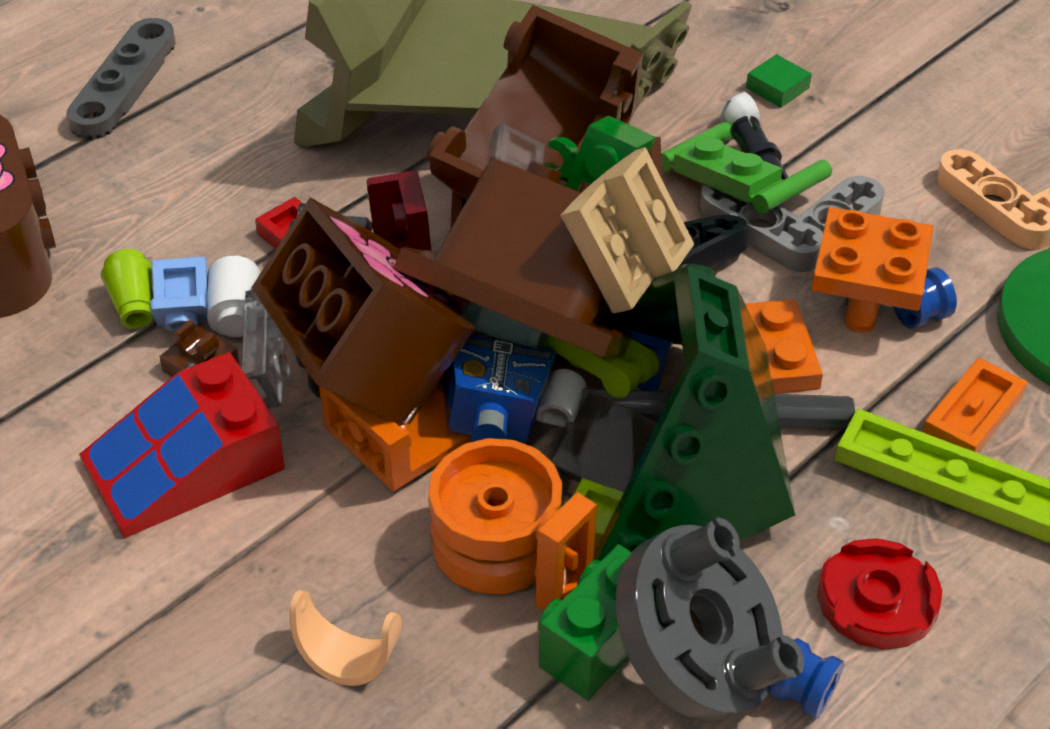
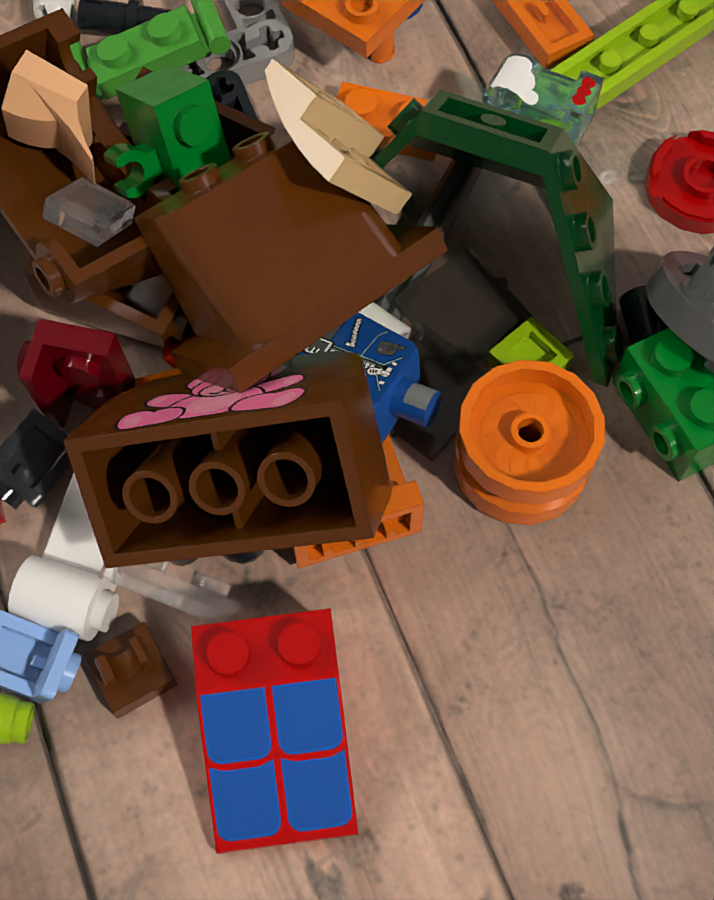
camera: 65 degrees left, 20 degrees up
(336, 653) = (620, 638): light nougat helmet -> none
(562, 98) = (49, 111): none -> light nougat slope
(564, 548) = (620, 391): orange plate -> none
(854, 415) = (544, 95): none -> clear light blue leg

